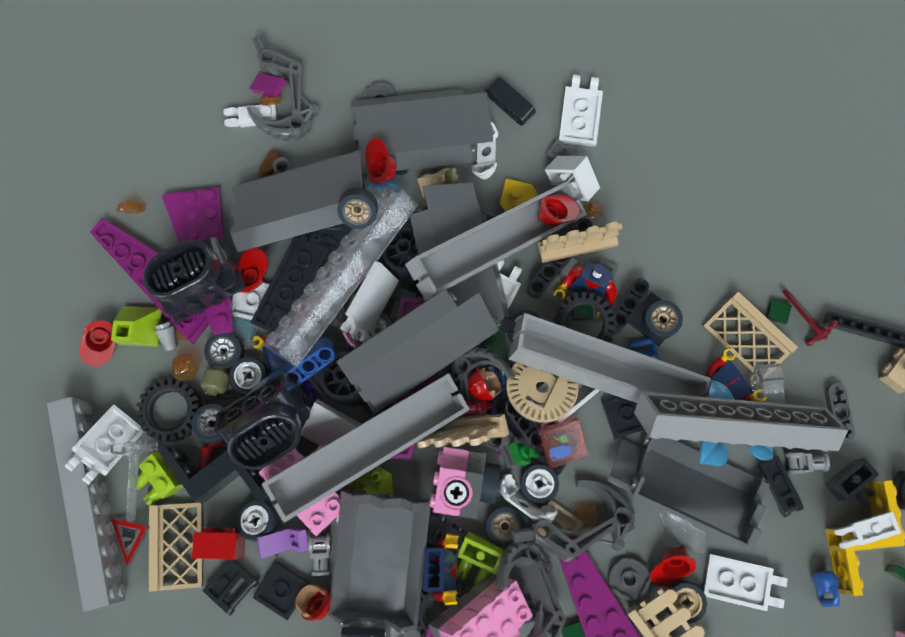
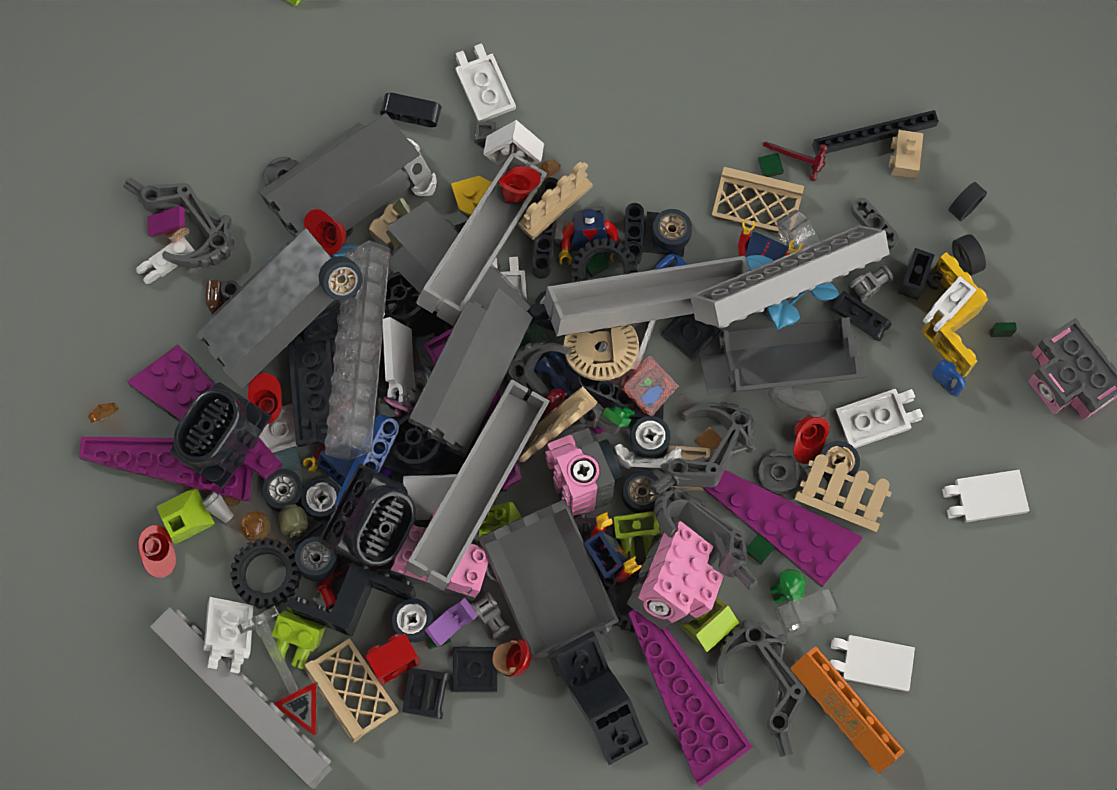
camera: 35 degrees left, 5 degrees down
(484, 385) = (547, 376): piece -> none

